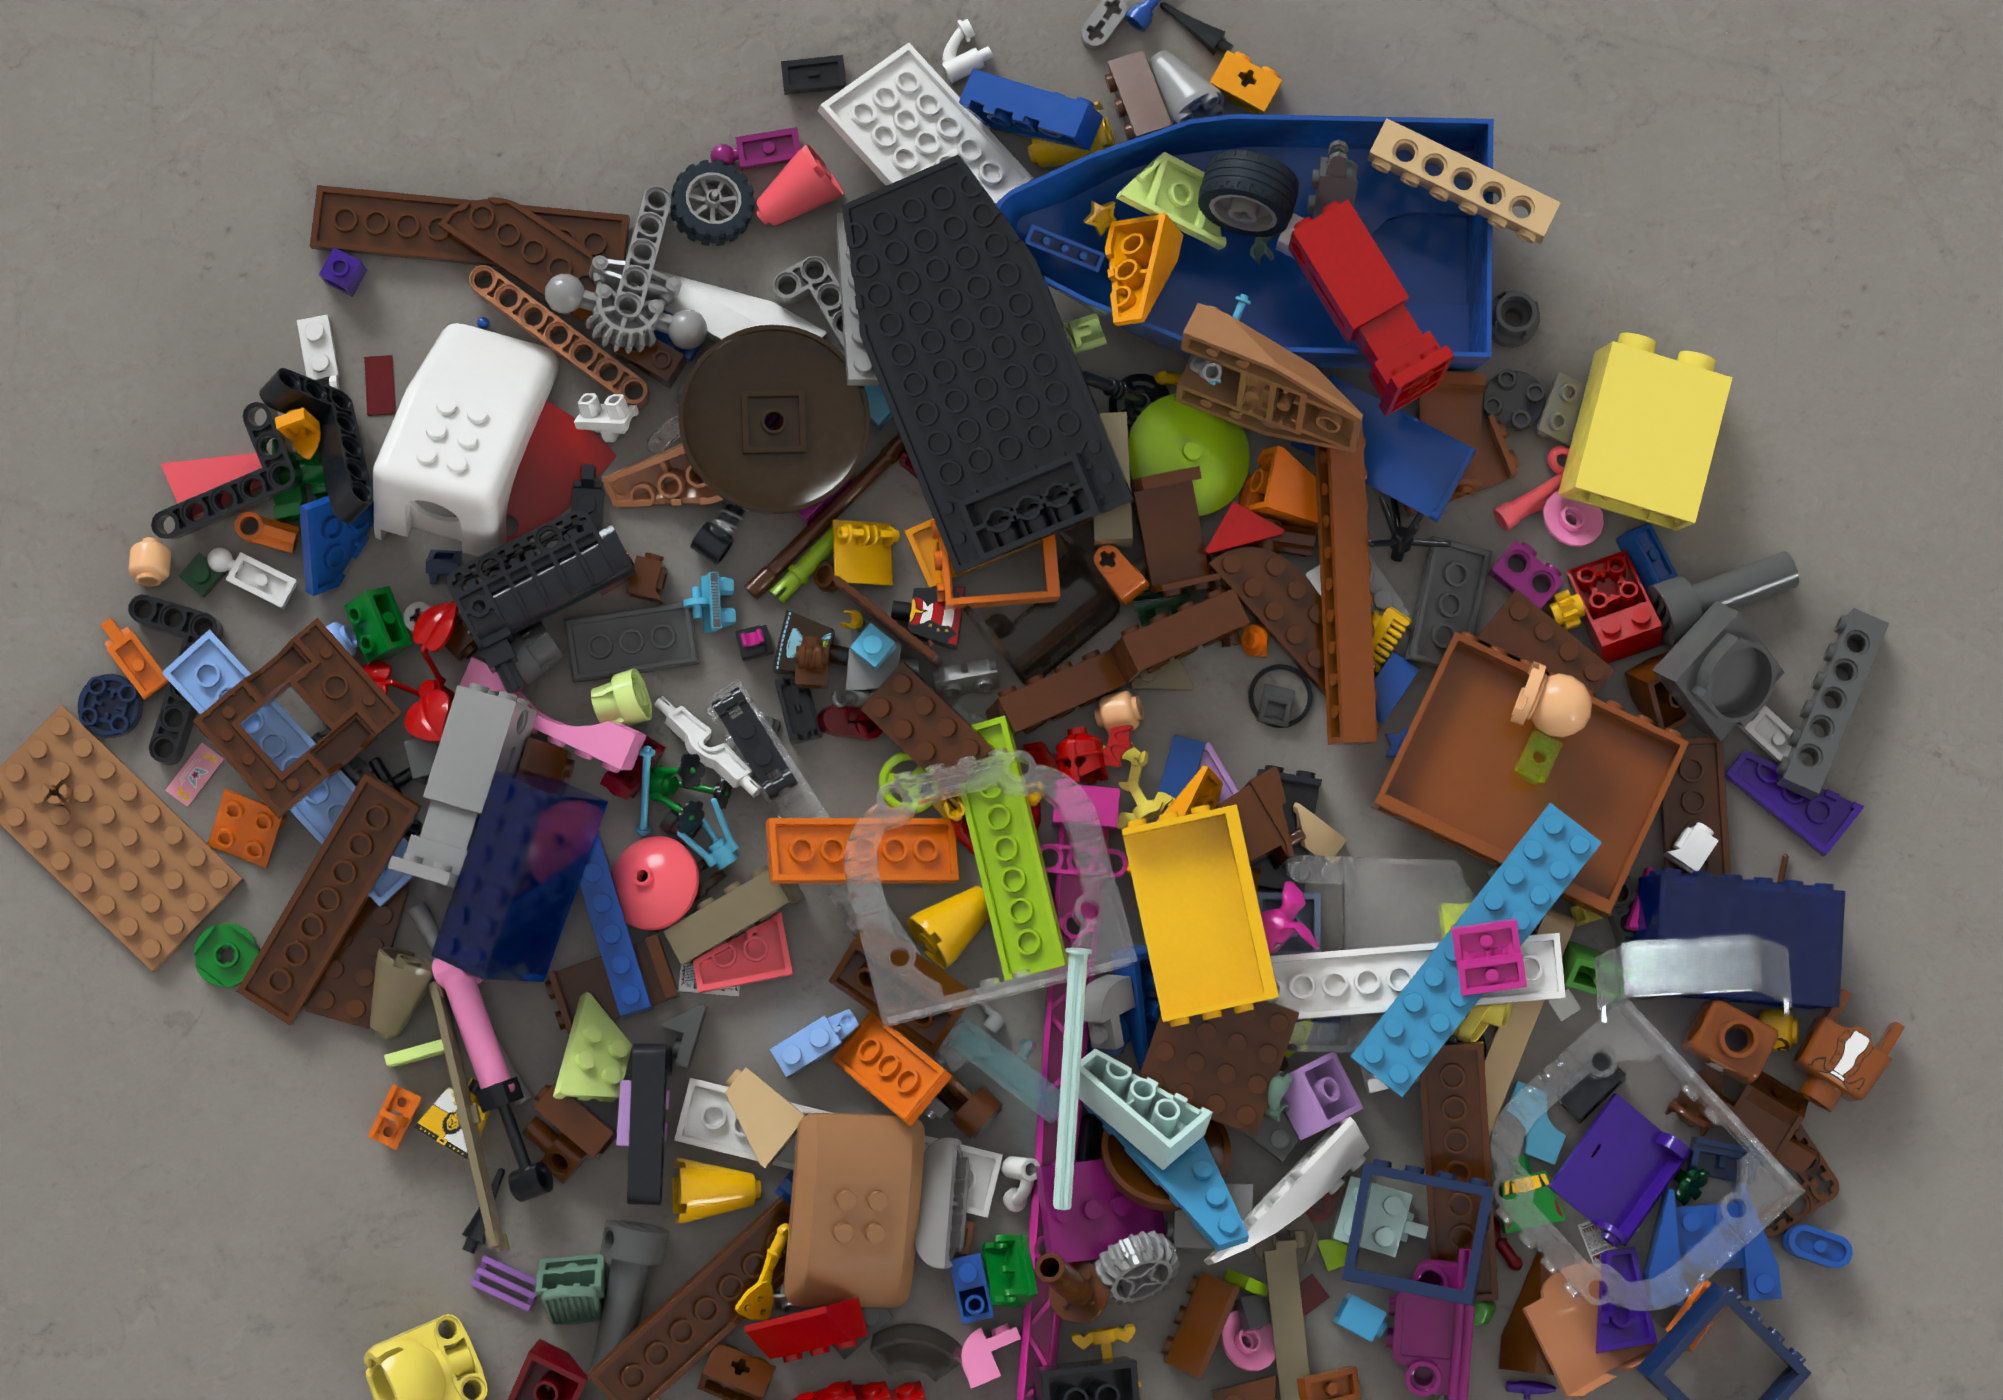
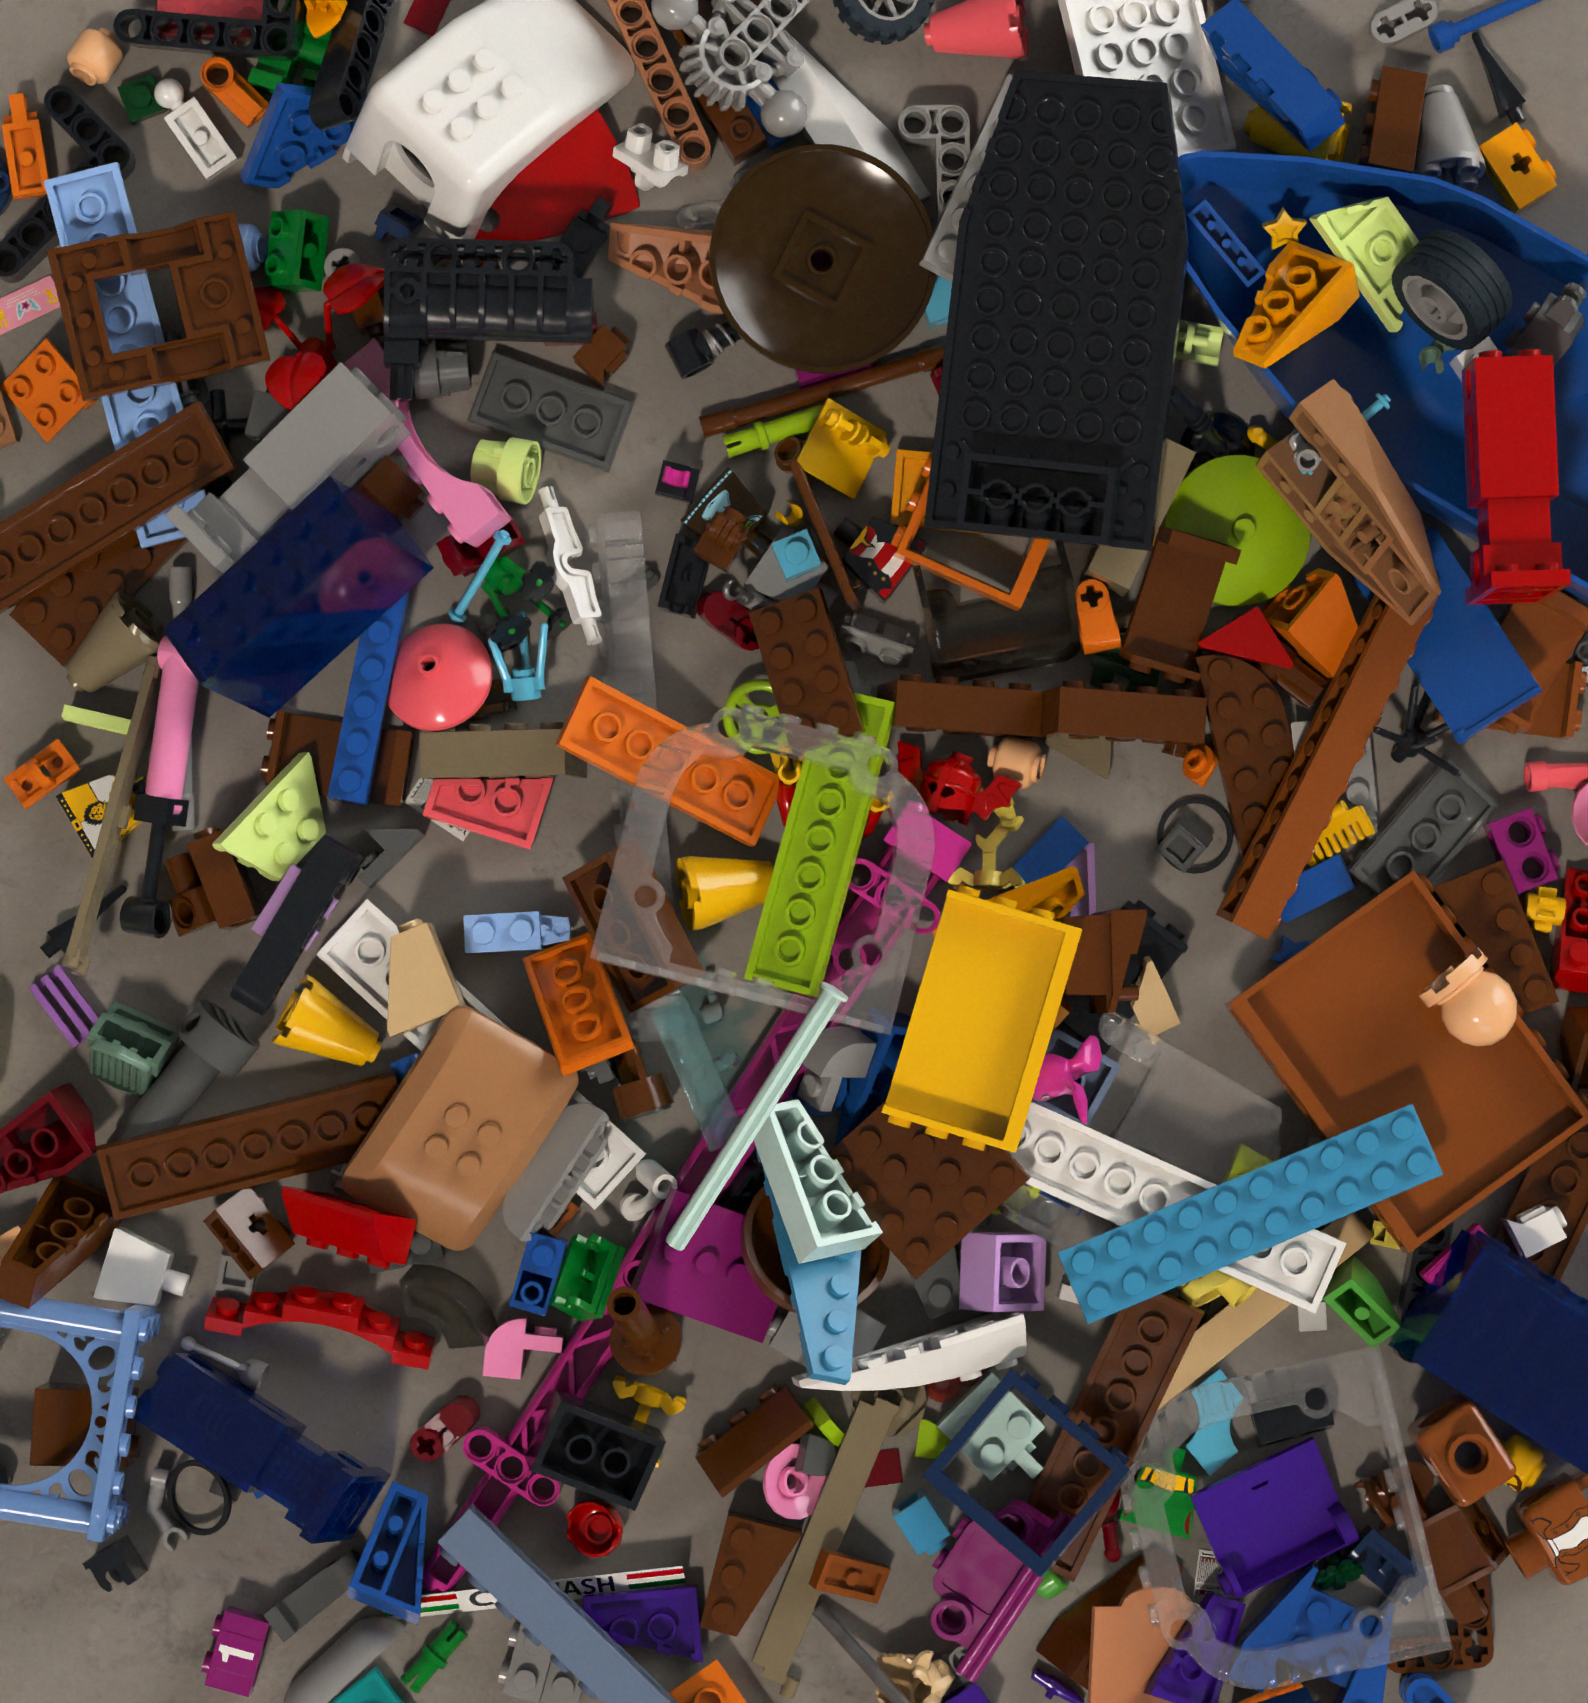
camera: 30 degrees right, 5 degrees up
(706, 602) = (649, 414): medium azure hips -> none
(754, 743) = (619, 589): black plate -> none
(763, 1287) = (326, 1155): yellow piece -> none
(1138, 1267) = (720, 1346): light grey gear -> none
(1277, 1088) = (962, 1245): sand green arm -> none
(1488, 957) = (1257, 1229): dark pink slope -> none
(1544, 745) = (1409, 1050): clear neon green brick -> none
(1692, 967) = (1463, 1359): clear windscreen -> none

